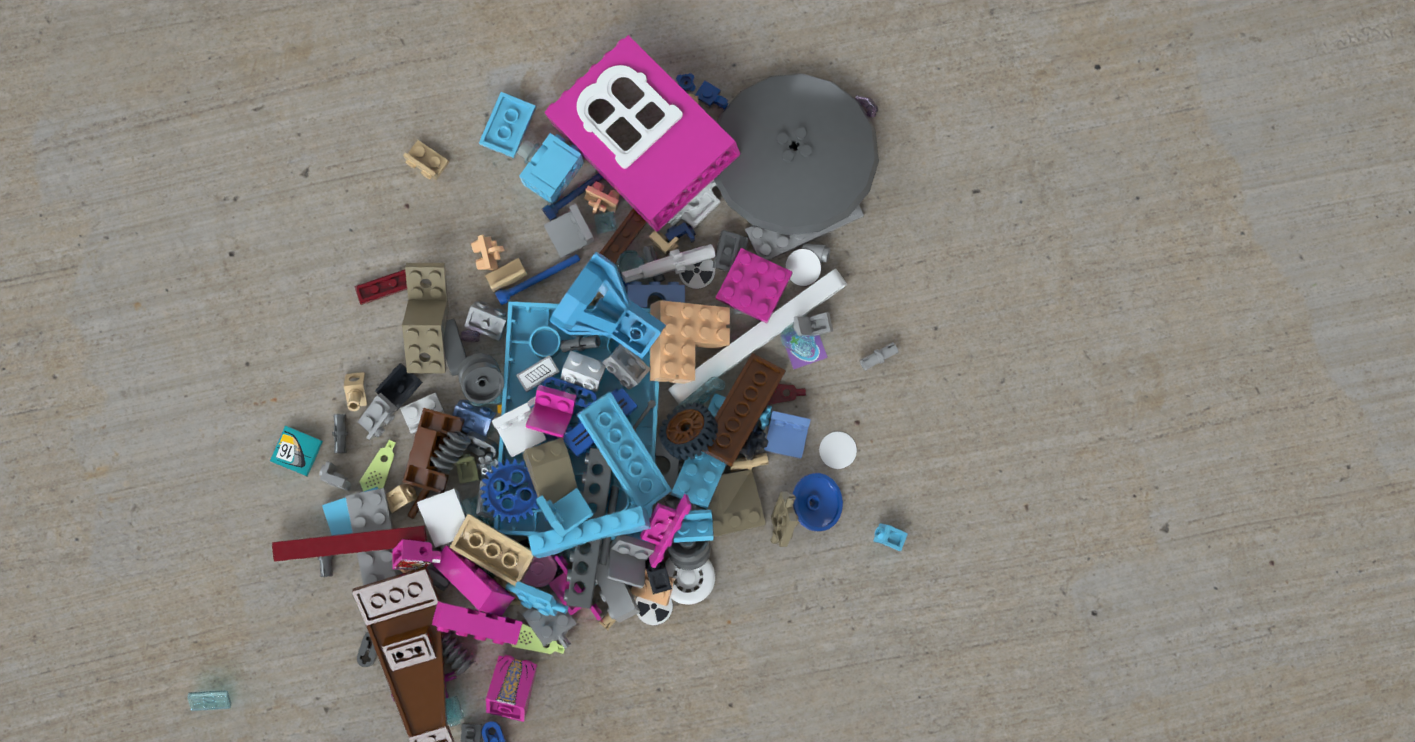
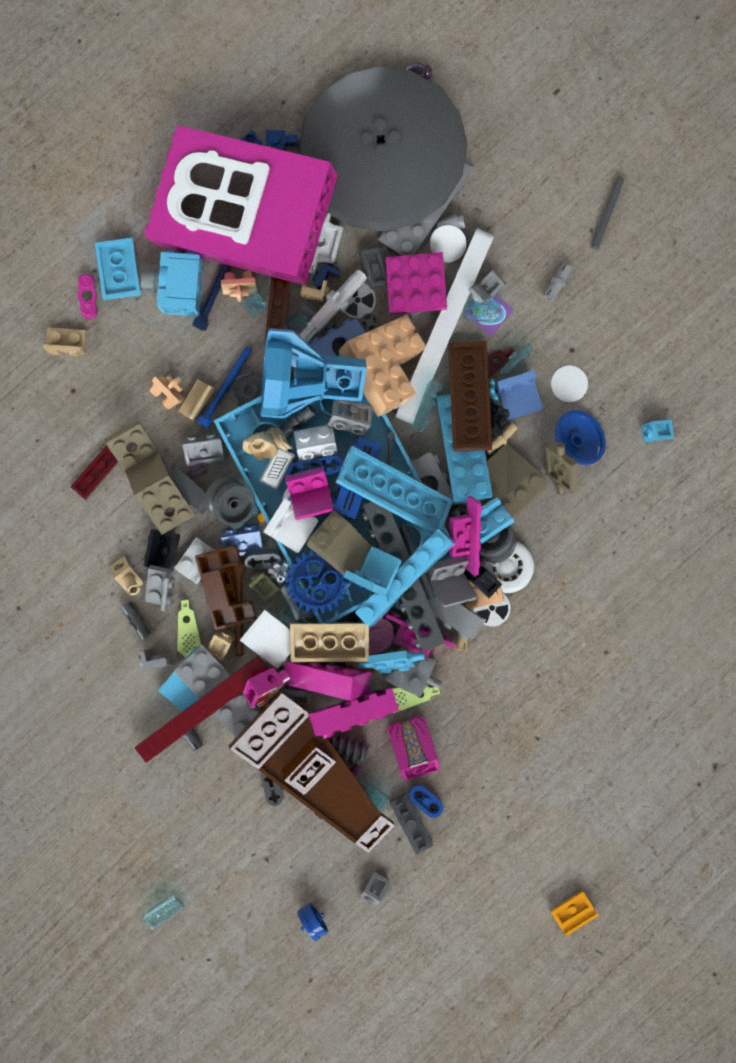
camera: 30 degrees left, 5 degrees up
(296, 451) = (107, 657): slope -> none
(450, 451) = (242, 579): dark grey piece -> none
(462, 143) = (87, 308): none -> dark pink piece
(539, 347) = (265, 444): none -> tan hair
(553, 289) = (246, 388): none -> dark grey tile
(569, 232) = (228, 330): light grey bracket -> none
(688, 431) = (437, 441): black wheel -> none
(694, 293) = (369, 320): none -> dark grey wheel
(802, 401) = (514, 359): none -> clear light blue plate
(957, 322) = (607, 213): none -> dark grey bar

